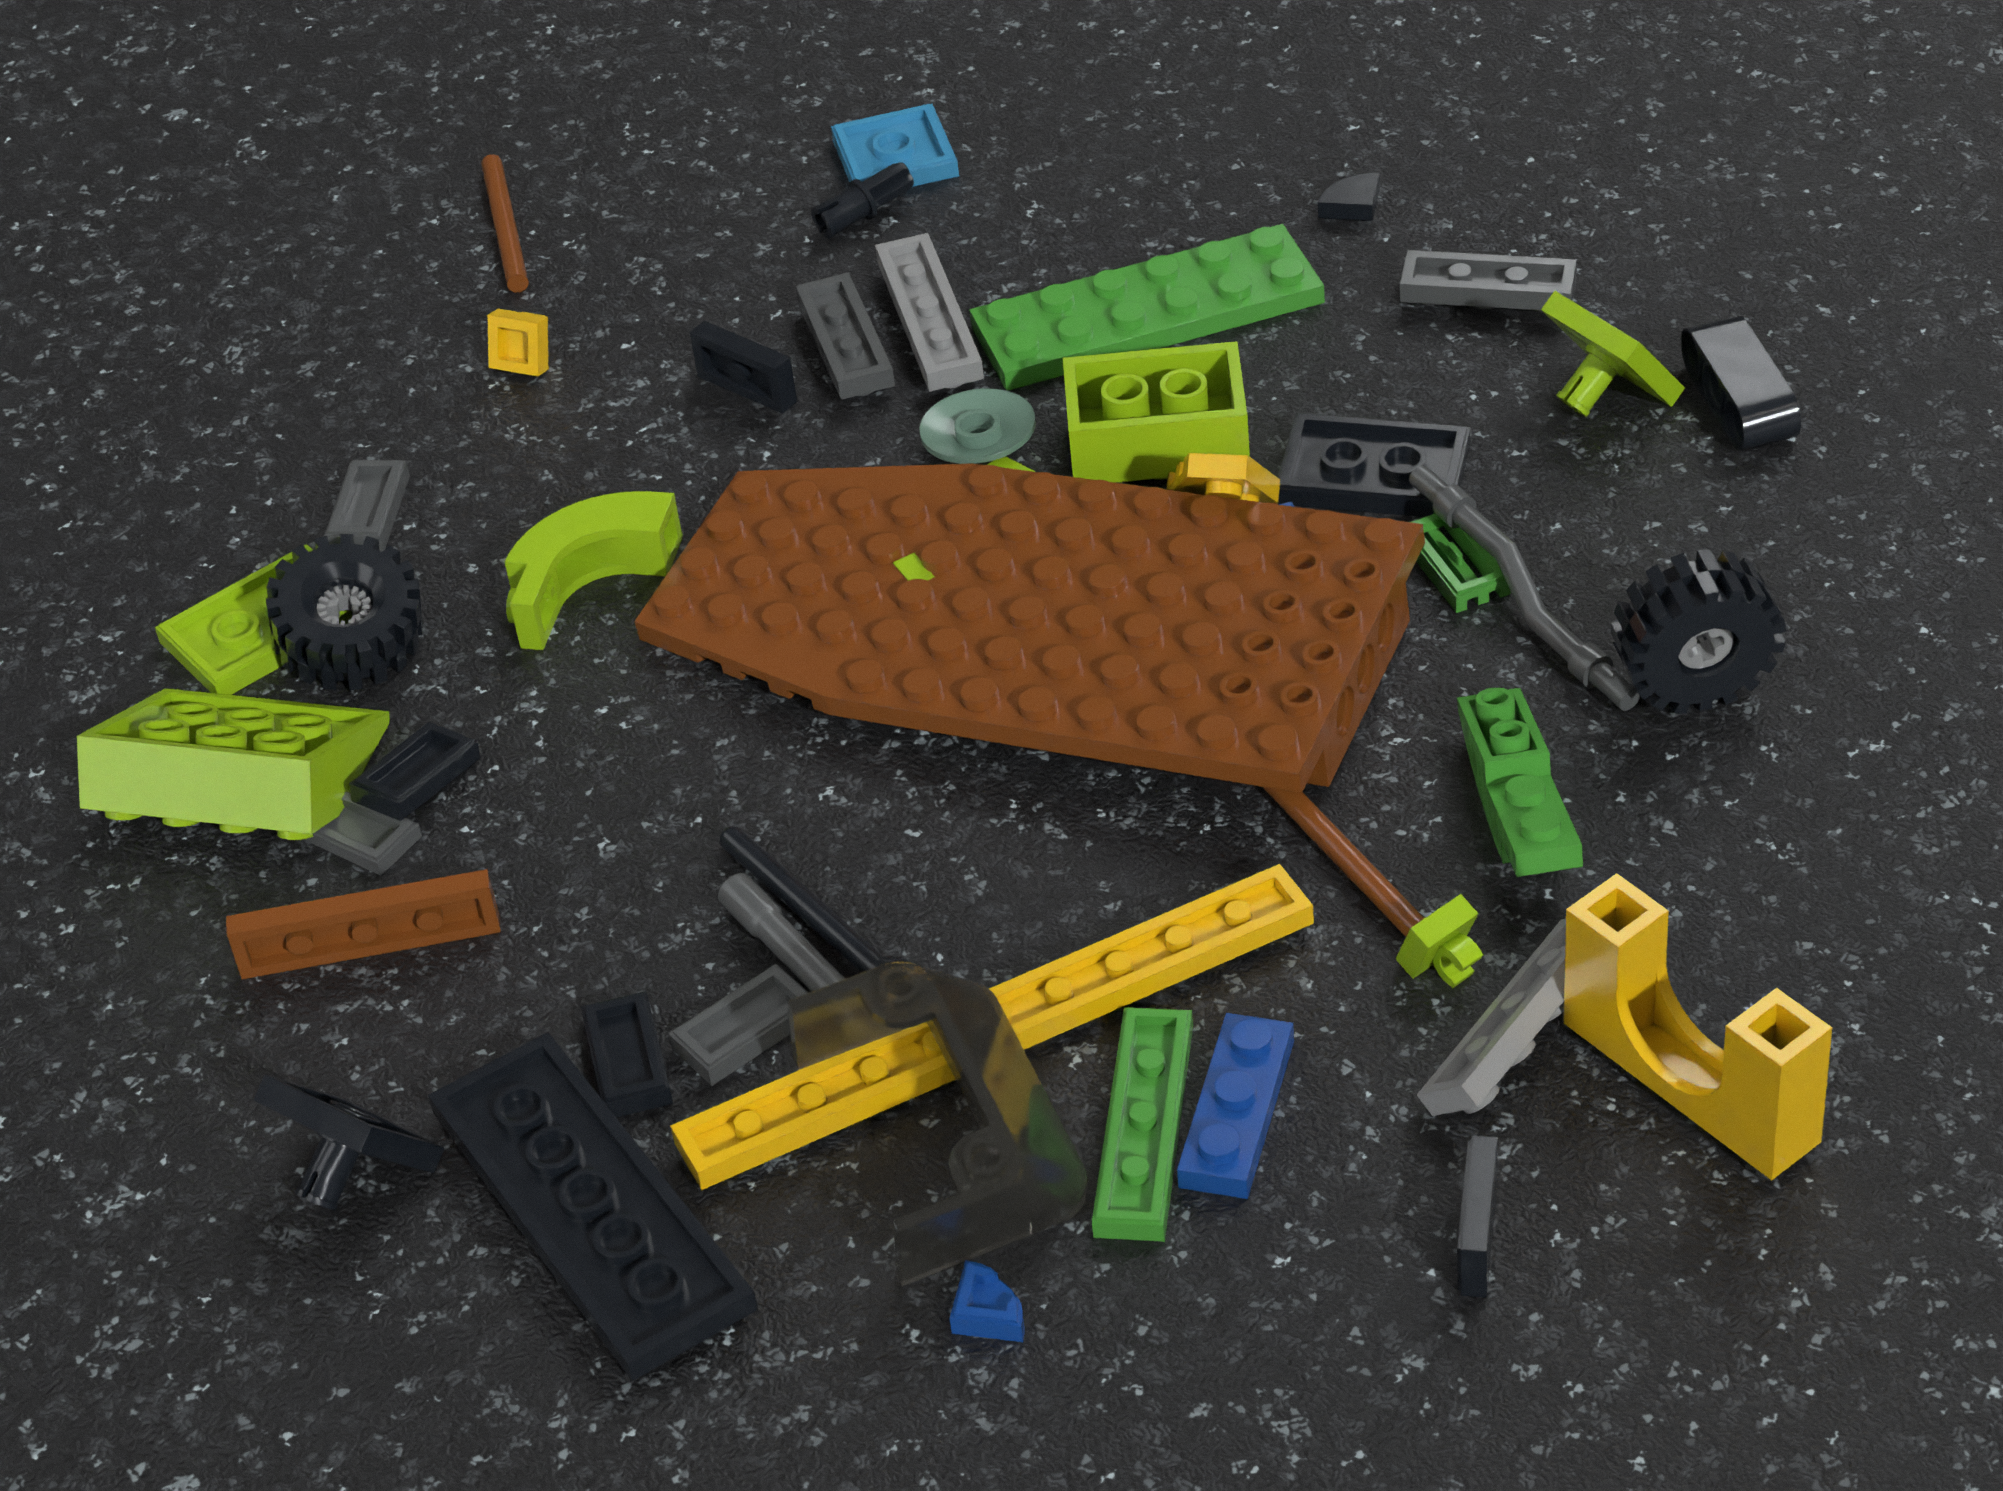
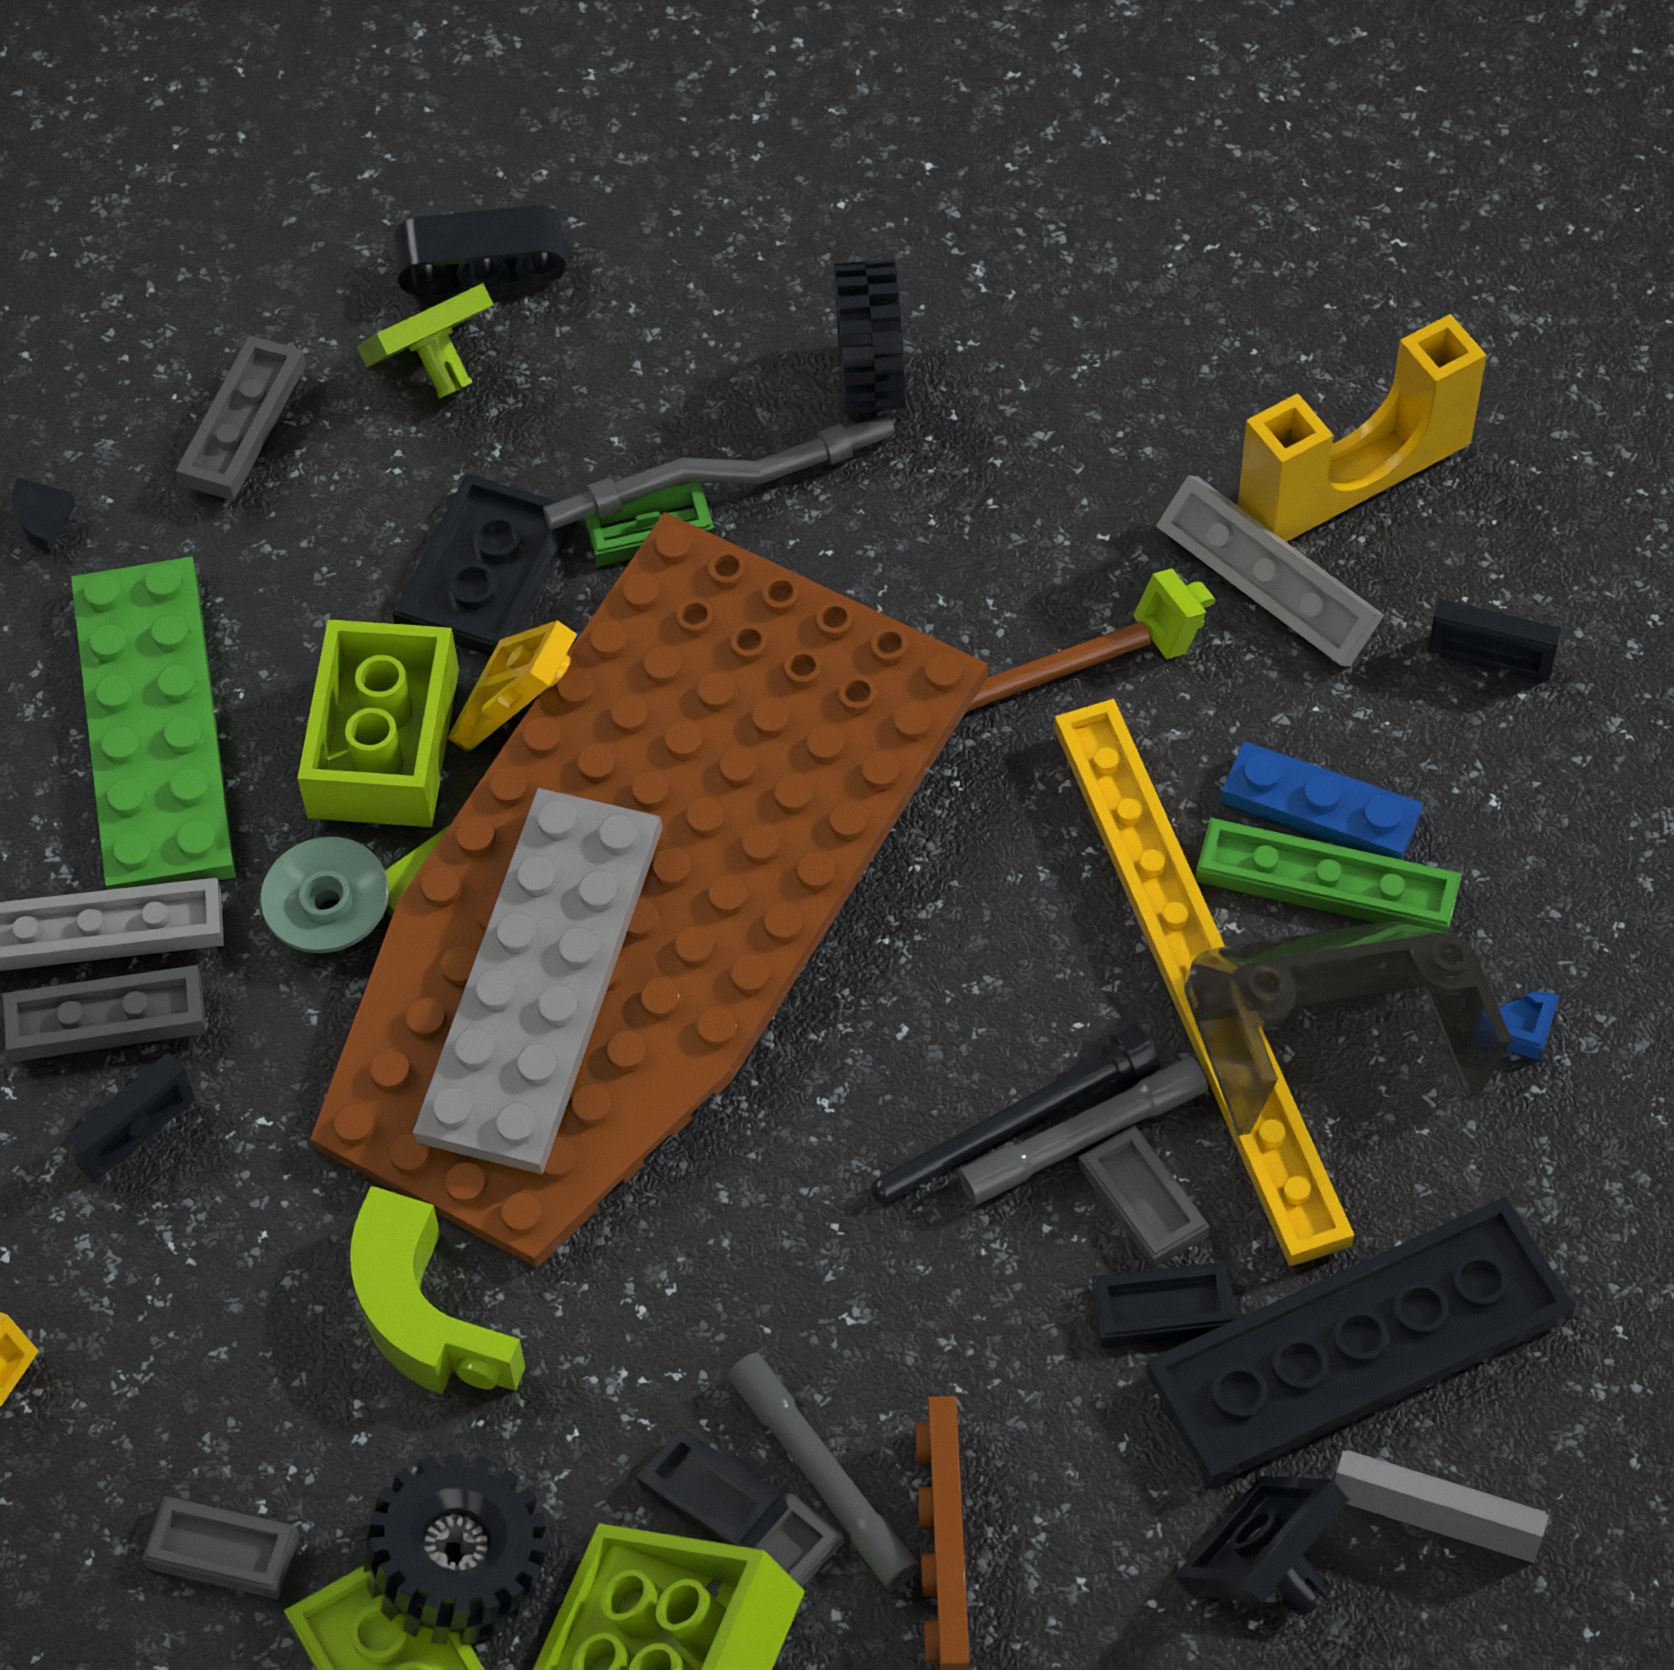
camera: 85 degrees left, 15 degrees up
(402, 1279) = (1441, 1506): none -> light grey tile
(496, 801) = (867, 1529): none -> dark grey piece
(893, 548) = (538, 981): none -> light grey plate
(1517, 784) = (984, 527): bright green slope -> none

